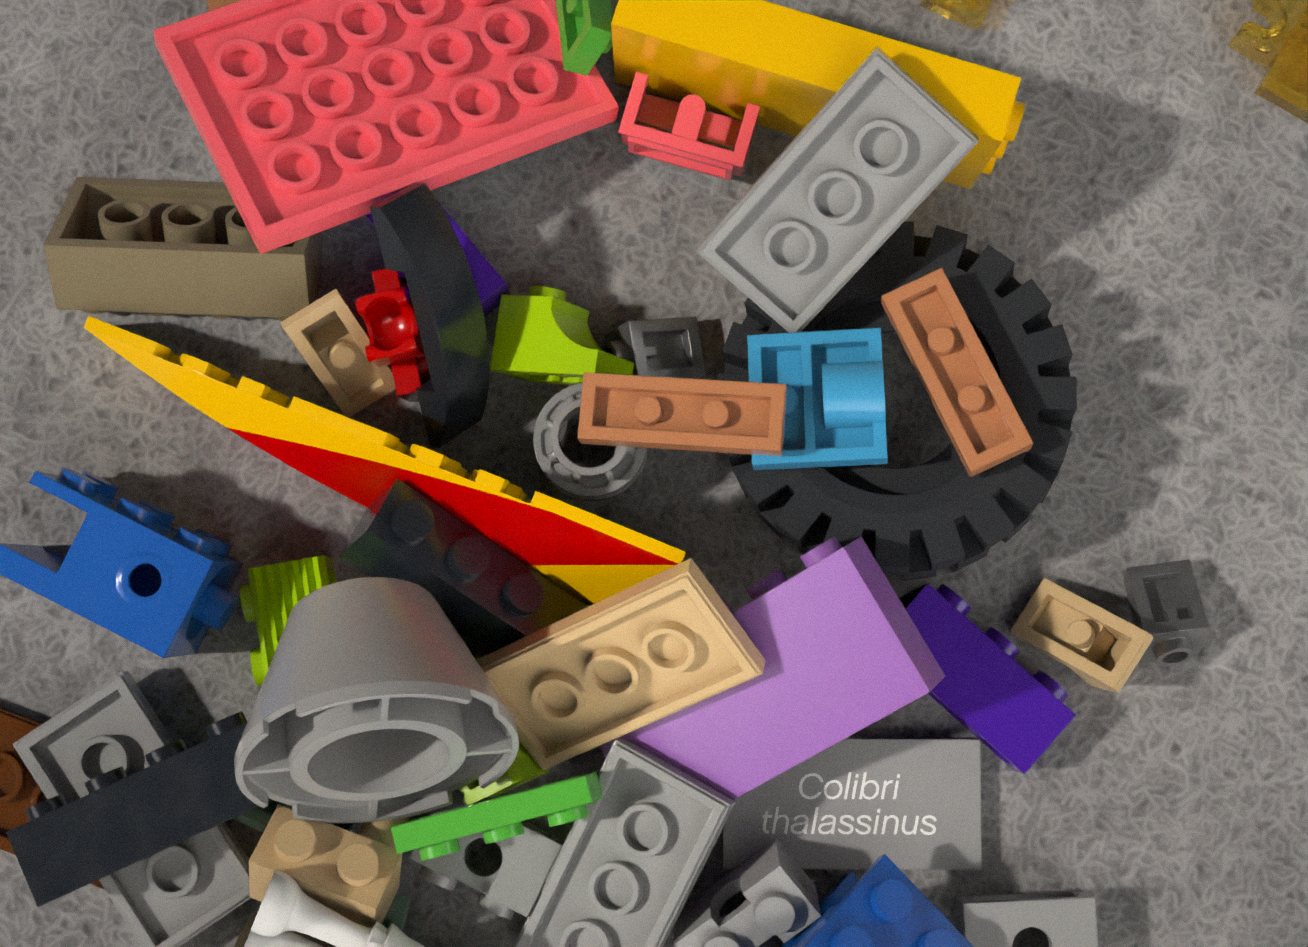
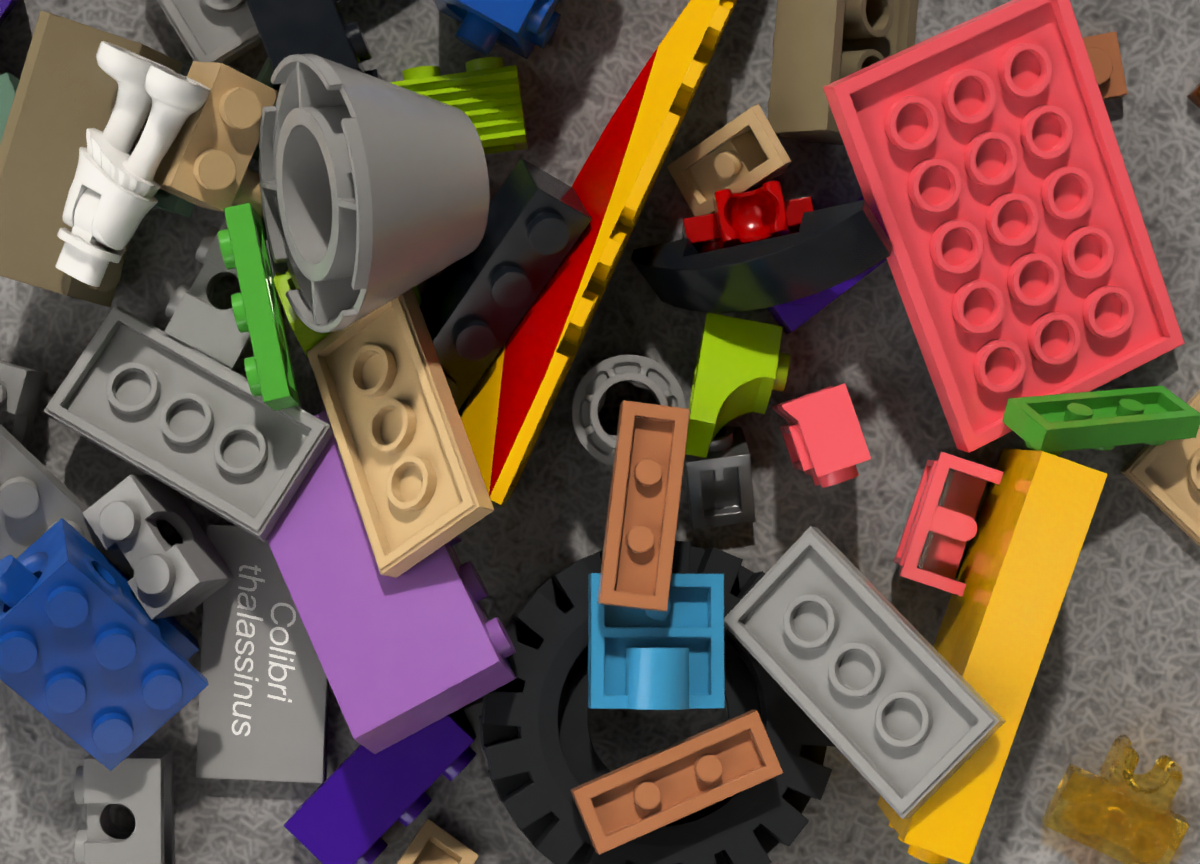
camera: 95 degrees right, 5 degrees up
(607, 248) = (824, 435): none -> coral window

